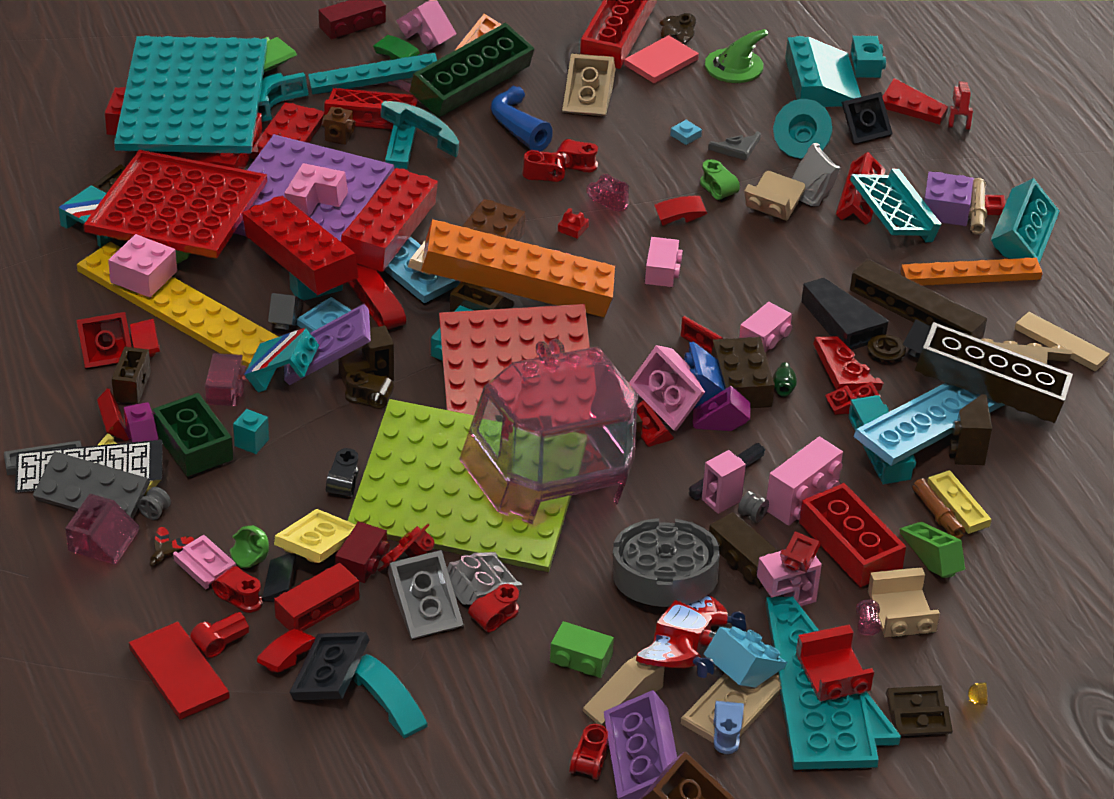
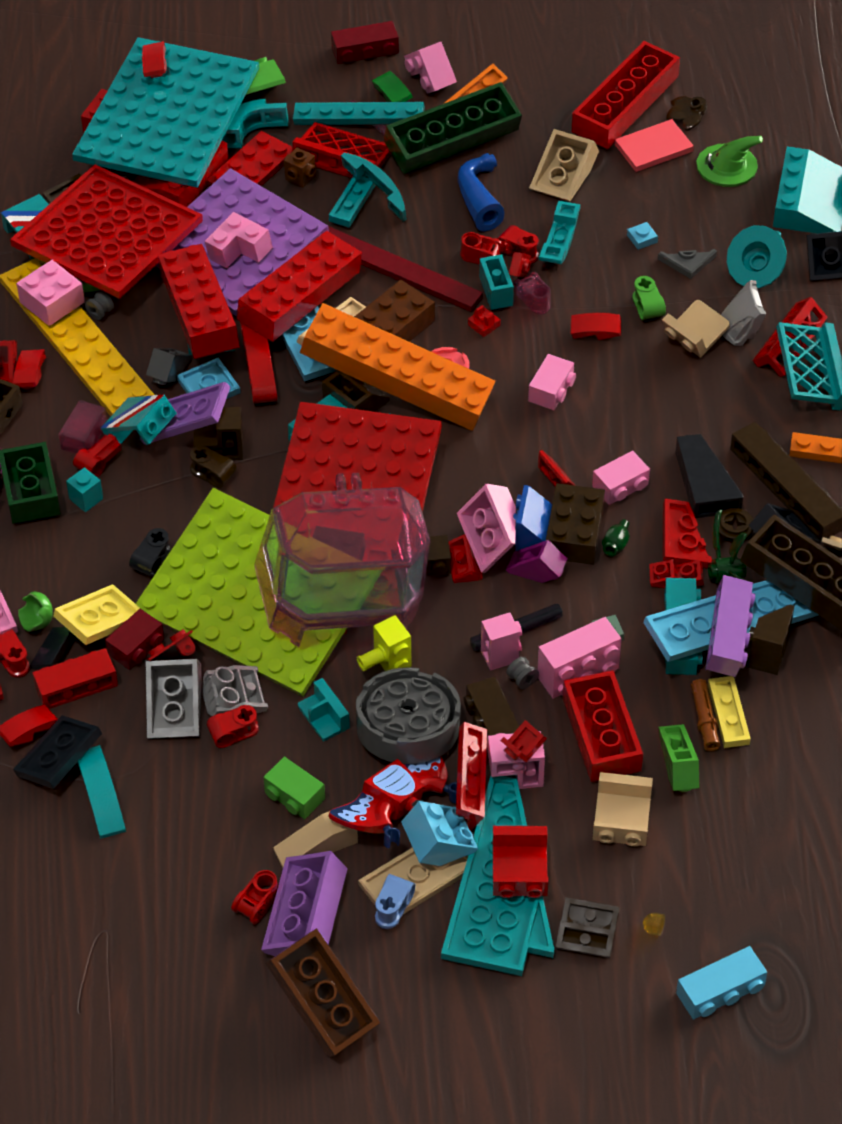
camera: 20 degrees right, 10 degrees up
(166, 49) = (154, 59): none -> red slope
(192, 271) = (99, 305): none -> dark grey wheel
(250, 398) = (97, 455): none -> red piece
(473, 196) = (413, 274): none -> dark red tile
(573, 188) = (496, 282): none -> teal brick
(579, 577) = (325, 711): none -> teal panel
(591, 168) = (520, 264): none -> red plate
(610, 139) = (561, 233): none -> teal slope
(621, 505) = (391, 646): none -> neon yellow brick
(751, 598) = (471, 773): none -> red fence
(868, 617) = (582, 816): clear pink bush -> none
(903, 383) = (727, 566): none -> dark green plant
(936, 423) = (730, 626): none -> medium lavender brick
(1067, 729) = (721, 983): none -> medium azure brick

